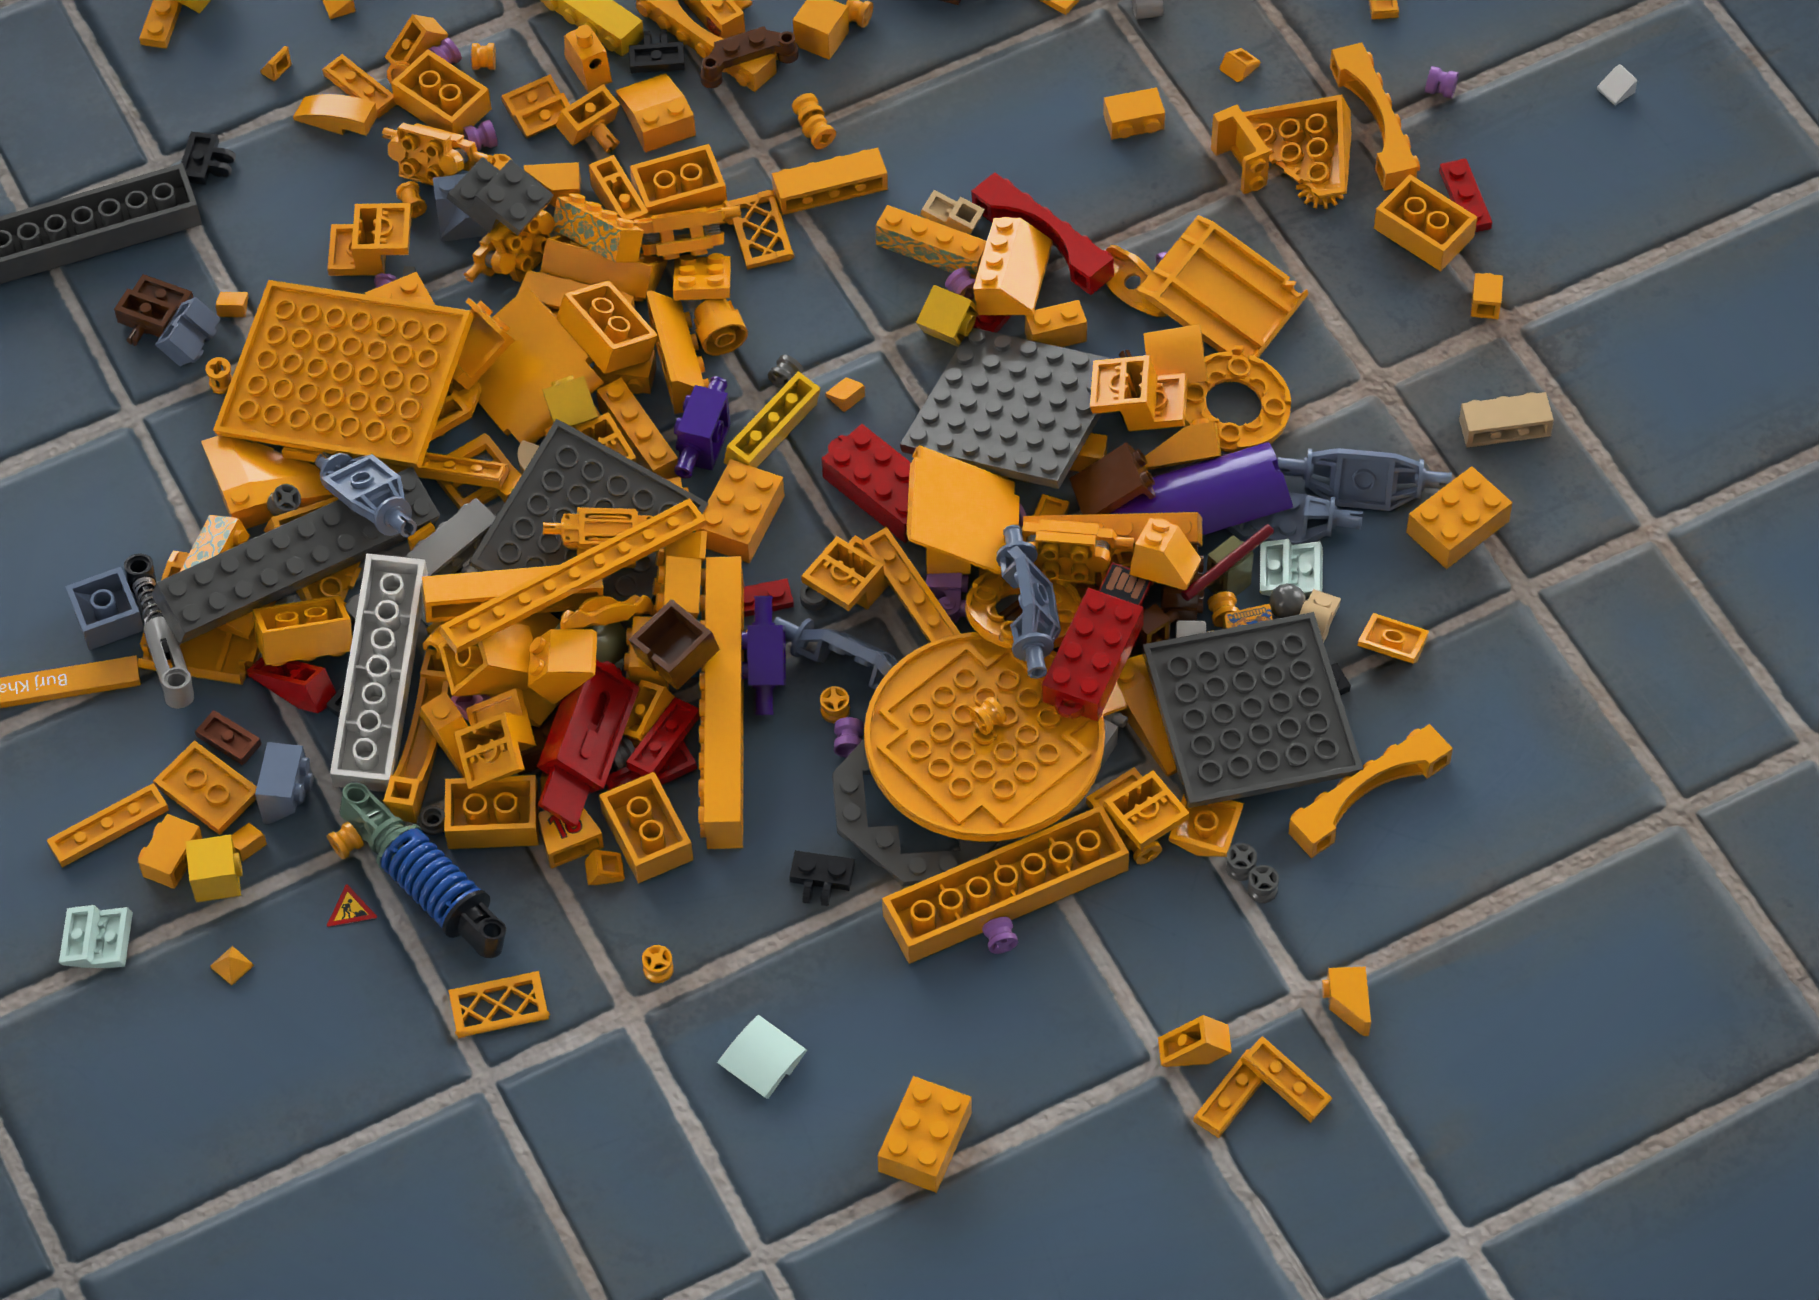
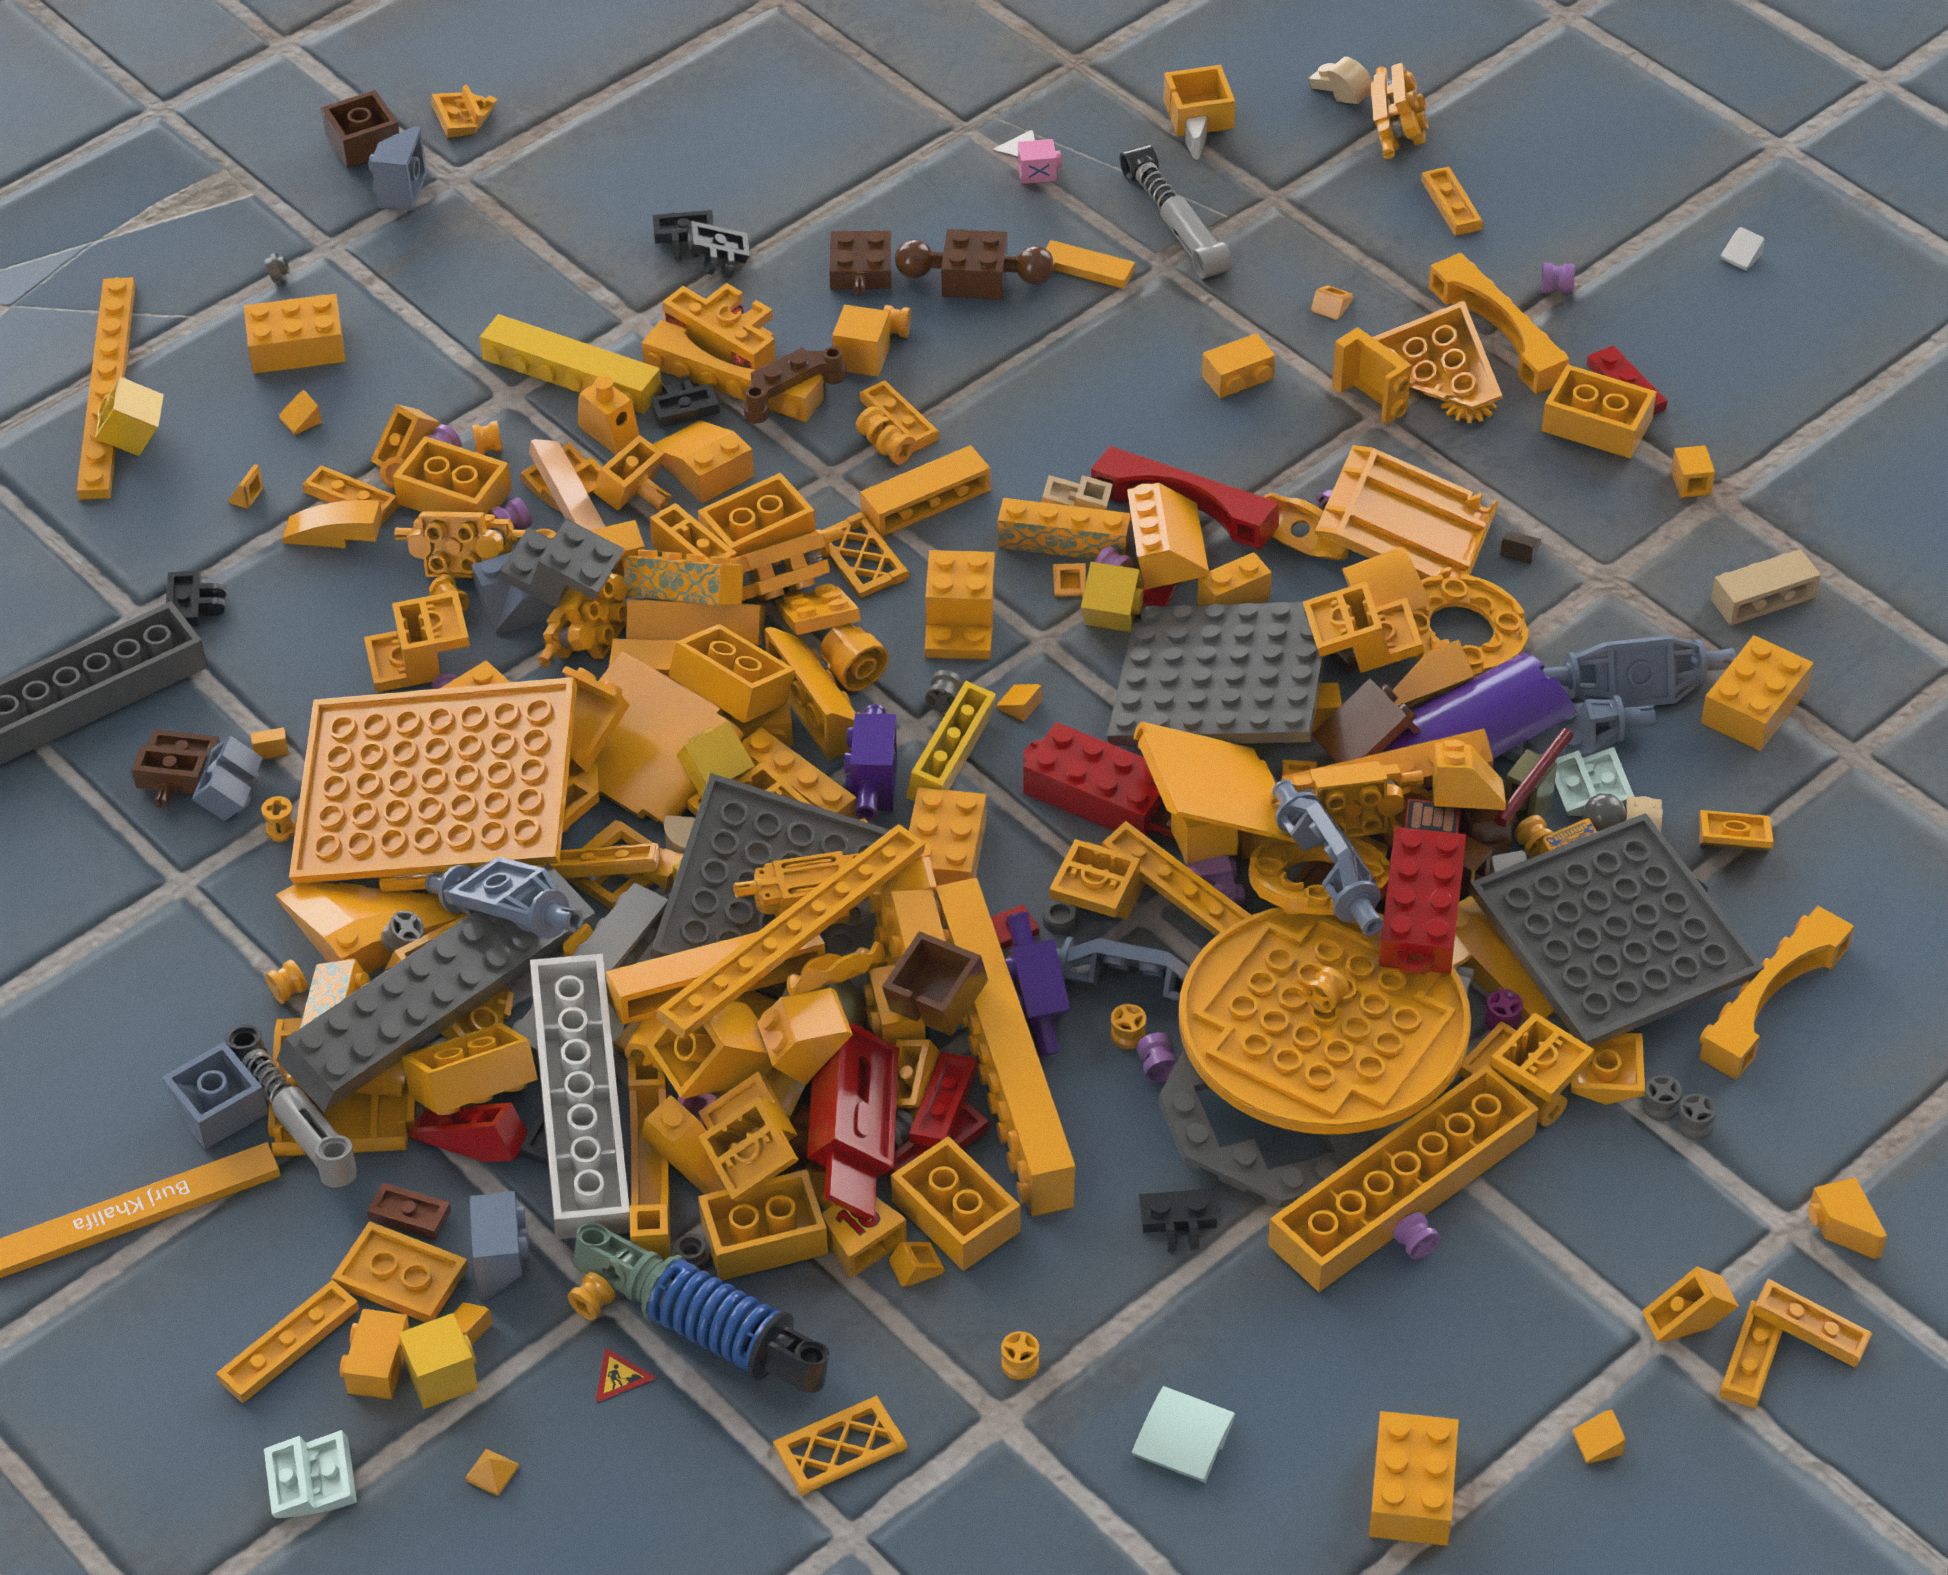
camera: 15 degrees left, 10 degrees down
(187, 520) = (286, 981): none -> light orange wheel
(533, 118) = (564, 484): none -> light nougat slope
(821, 296) = (959, 604): none -> light orange bracket
(834, 102) = (901, 412): none -> light orange tile
(920, 288) = (1069, 579): none -> light orange slope
(1083, 1134) = (1600, 1438): none -> light orange slope
(1142, 751) = (1504, 1002): none -> magenta wheel
(1313, 335) = (1519, 546): none -> dark brown slope

